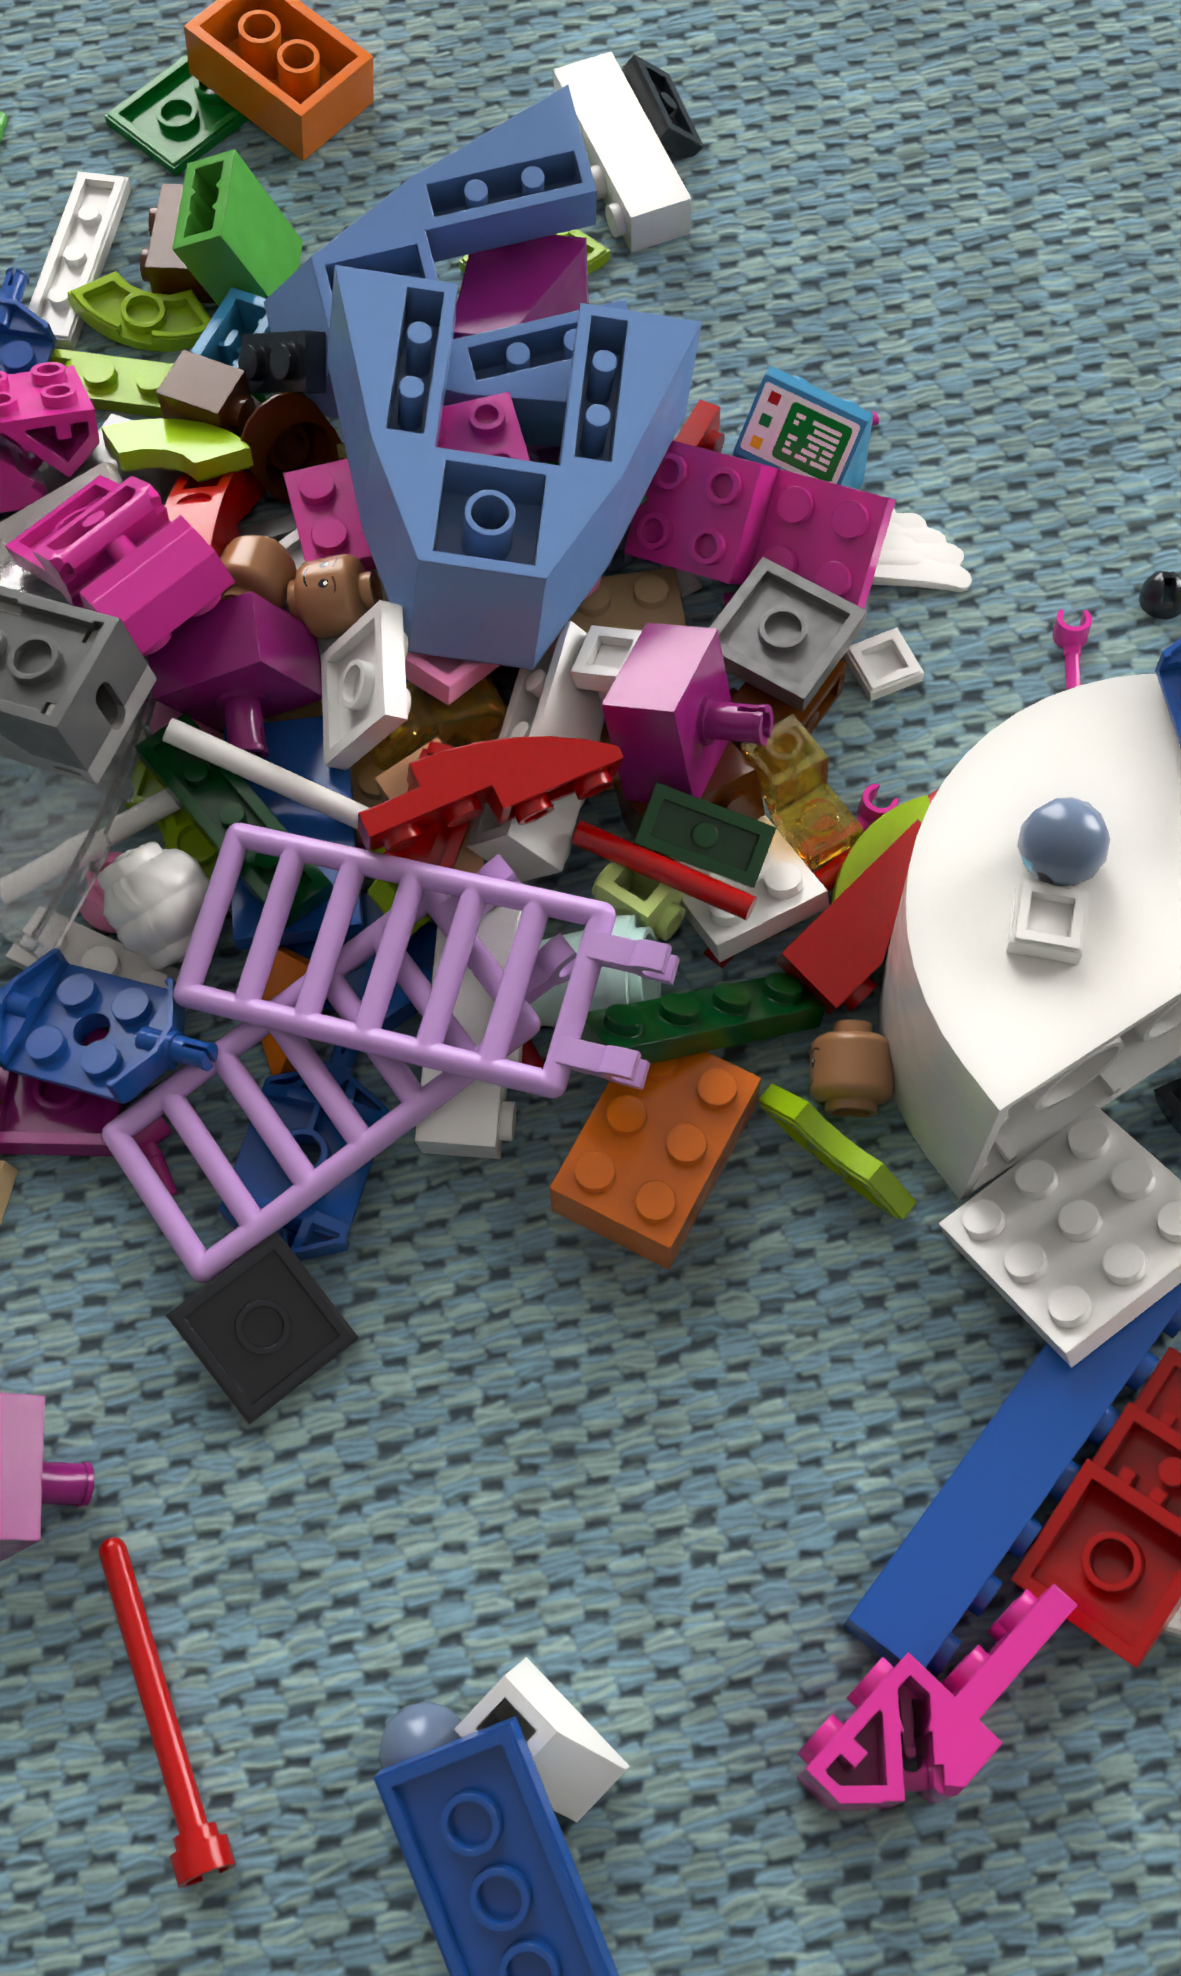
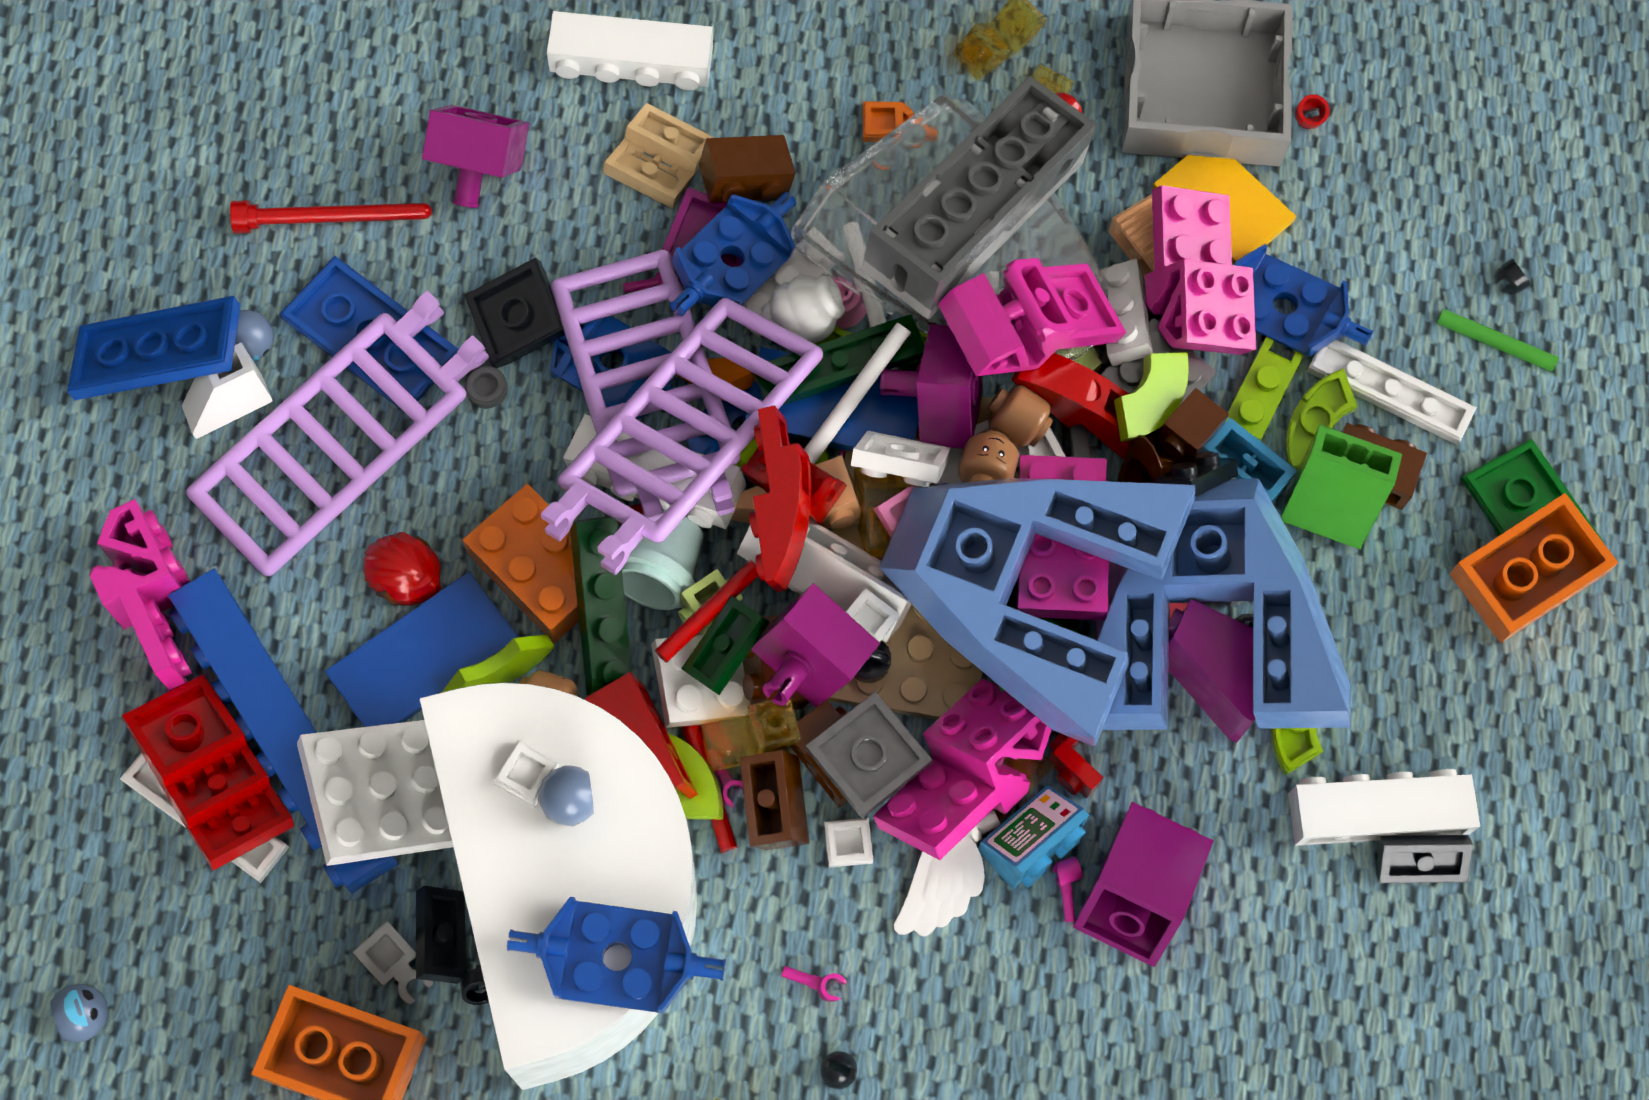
camera: 100 degrees right, 5 degrees up
(355, 1556) = (340, 305): none -> blue tile
(395, 1336) = (486, 387): none -> dark grey tile
(527, 1619) = (401, 332): none -> lavender bar
(730, 1347) = (402, 569): none -> red hair
(808, 323) = (1144, 884): none -> magenta slope
(849, 1273) = (421, 653): none -> blue tile
(883, 737) = (774, 800): none -> reddish brown brick

